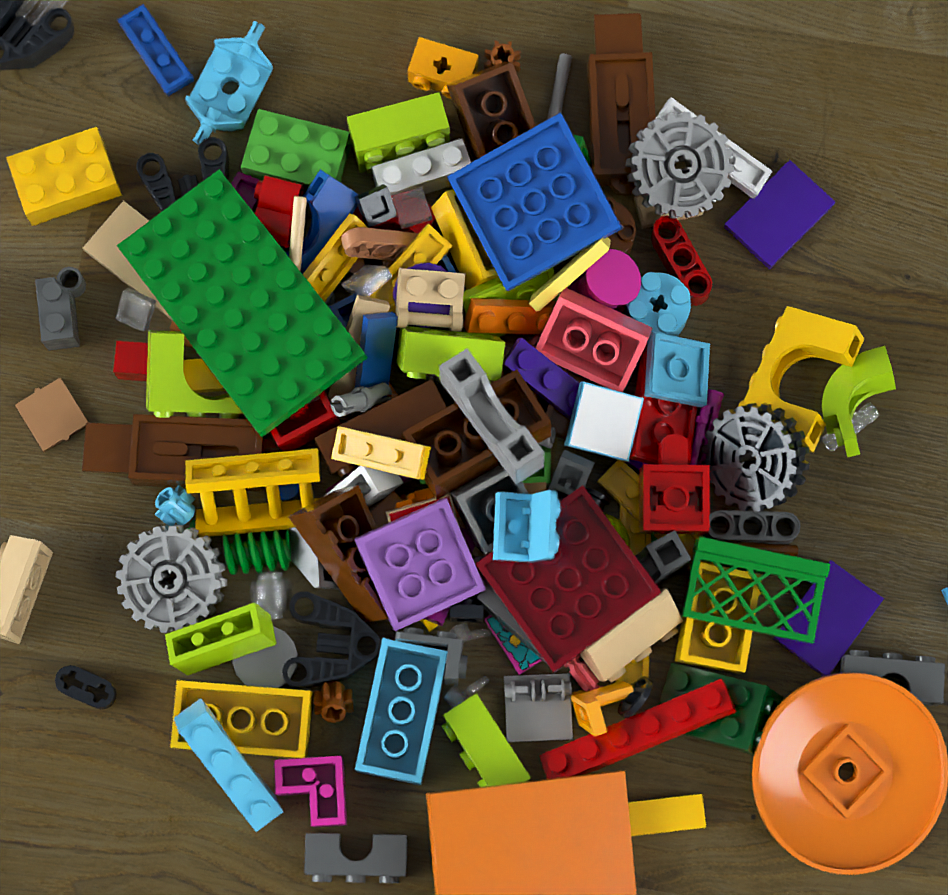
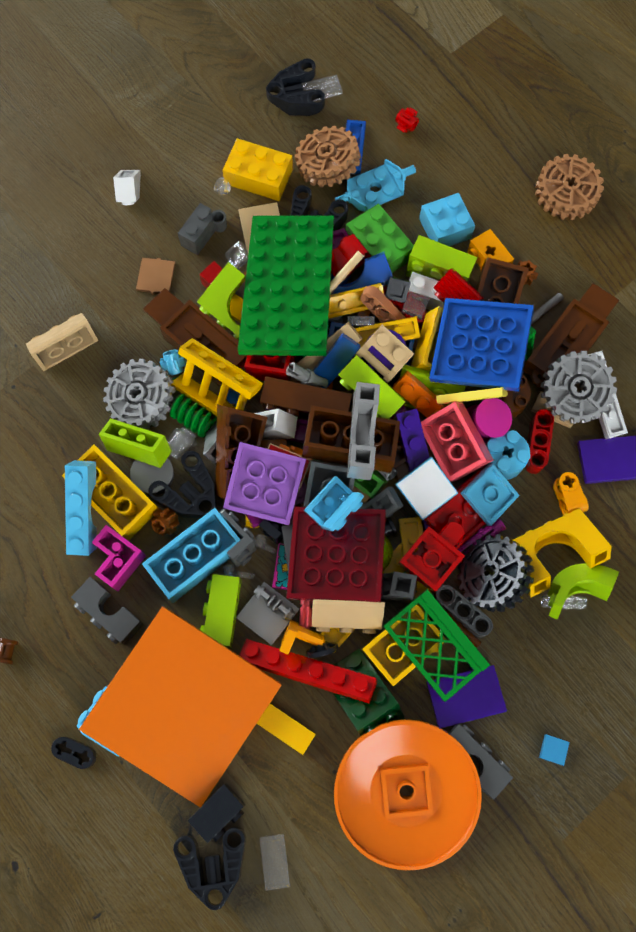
camera: 40 degrees right, 5 degrees down
(35, 233) = (222, 186): none -> clear hinge
(89, 680) = (58, 414): black beam -> none
(140, 92) = (327, 156): none -> medium nougat piece
(357, 65) = (447, 220): none -> medium azure brick
(381, 452) = (291, 408): yellow tile -> none
(448, 152) = (455, 286): none -> red brick
(767, 298) = (571, 495): none -> light orange piece

